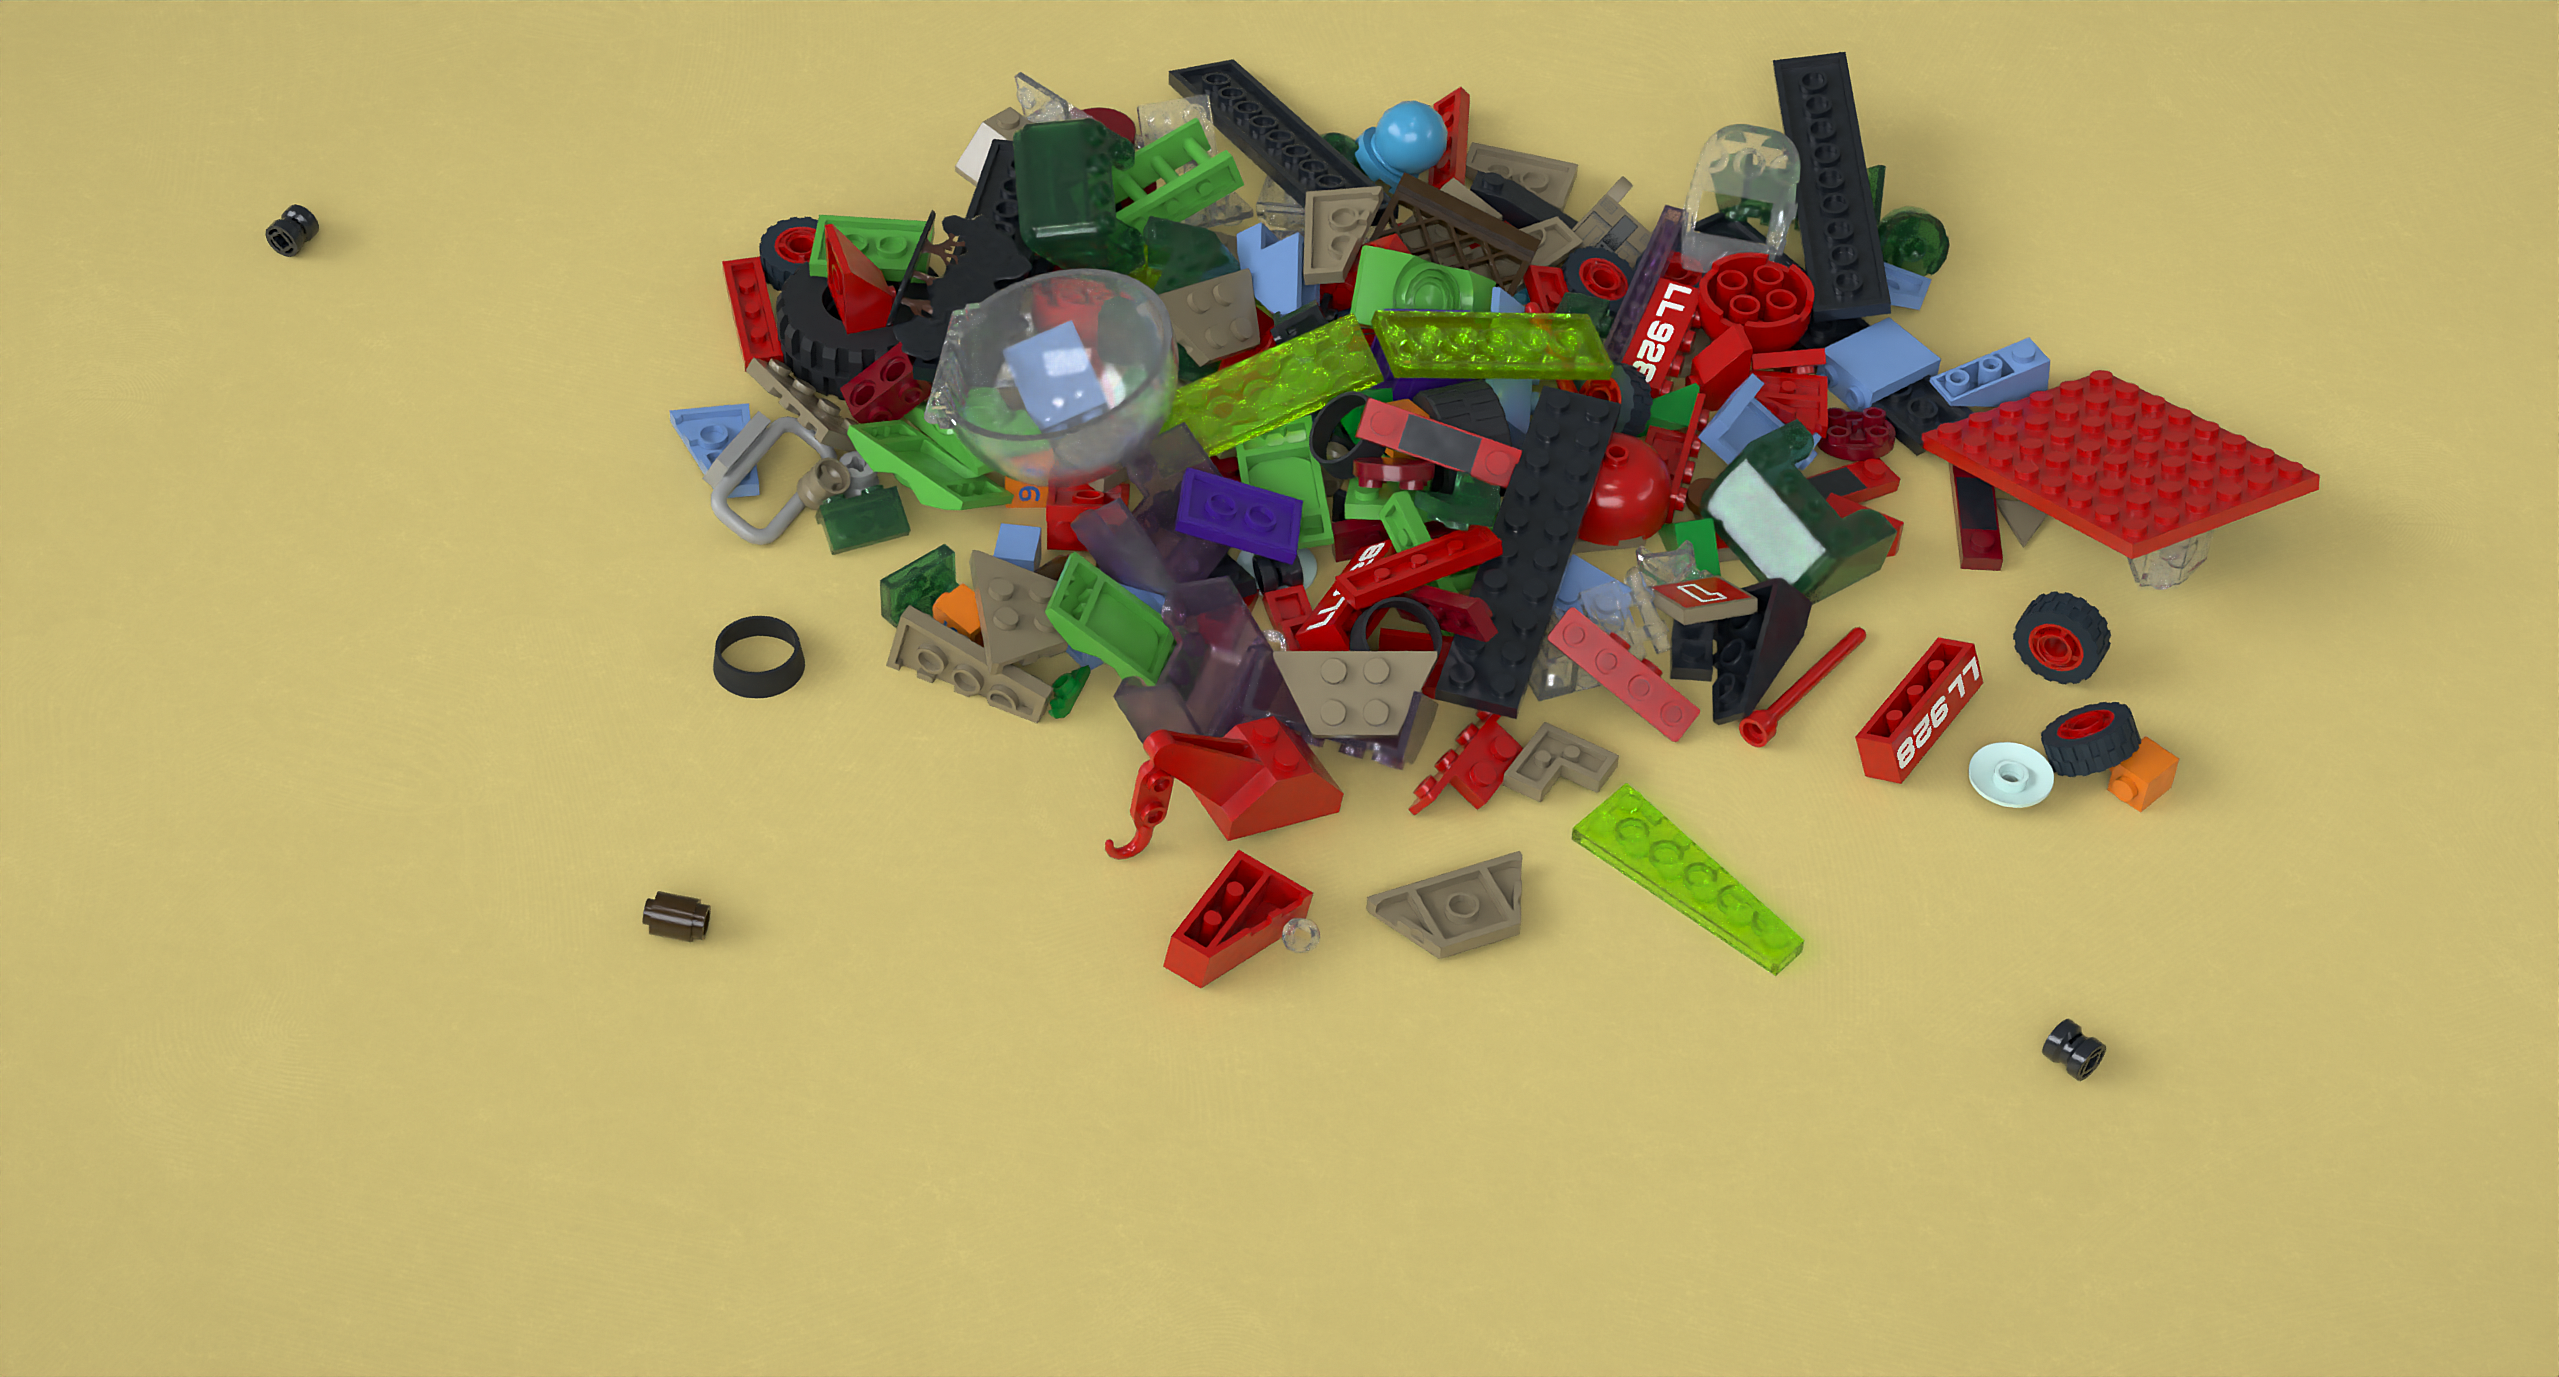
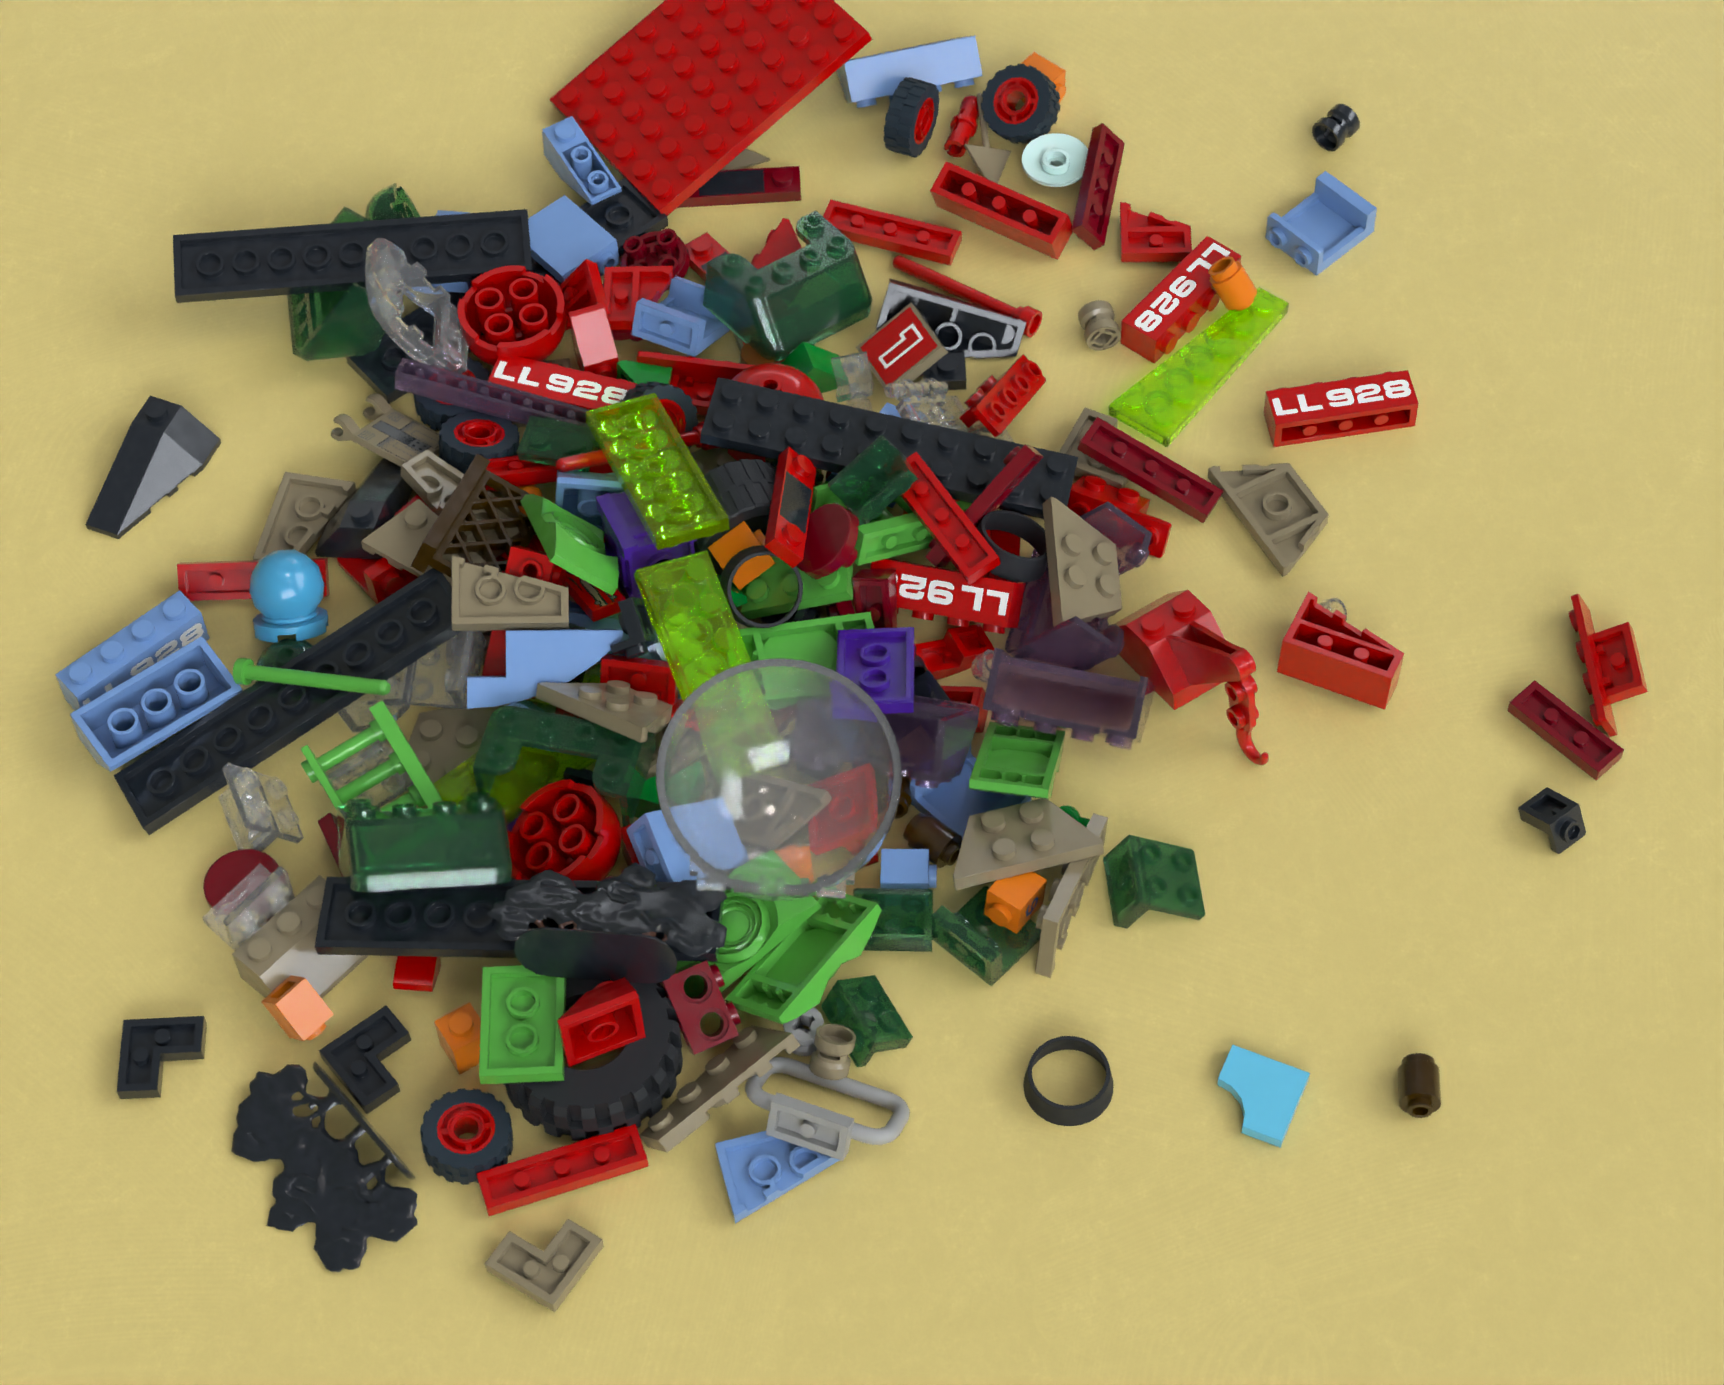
camera: 90 degrees left, 10 degrees up
(657, 300) = (549, 1273): none -> dark tan plate
(706, 804) = (1265, 1092): none -> medium azure tile
(837, 176) = (322, 1173): none -> black plant
(898, 195) = (358, 1054): none -> black plate
(941, 78) = (149, 1044): none -> black plate
(952, 154) = (298, 1008): none -> brick
(967, 532) = (903, 919): none -> clear green bracket
(971, 745) = (1153, 877): none -> clear green bracket
(984, 1085) = (1556, 817): none -> black bracket
(1105, 1122) = (1565, 730): none -> dark red plate
(1191, 1169) = (1611, 664): none -> red bracket
(1299, 73) = (154, 704): none -> medium blue slope
(1312, 112) = (245, 672): none -> bright green bar
(1354, 544) = (877, 593): none -> dark red slope
(1361, 63) = (132, 650): none -> medium blue brick
(1516, 794) = (1150, 470): none -> dark red plate
(1605, 986) = (1340, 408): none -> red brick
(1613, 89) = (155, 457): none -> black wedge
(1741, 785) = (1099, 325): none -> dark tan wheel
(1784, 862) = (1175, 303): none -> red brick
(1784, 887) = (1232, 284): none -> orange brick
(1889, 851) = (1152, 237): none -> red wing
(1898, 626) = (894, 232): none -> red plate
(1903, 1013) = (1322, 225): none -> medium blue panel
(1969, 809) = (1098, 186): none -> dark red plate
(2016, 724) = (987, 160): none -> dark tan piece
(2057, 698) = (963, 127): none -> red pin
(2161, 661) = (936, 63): none -> slope

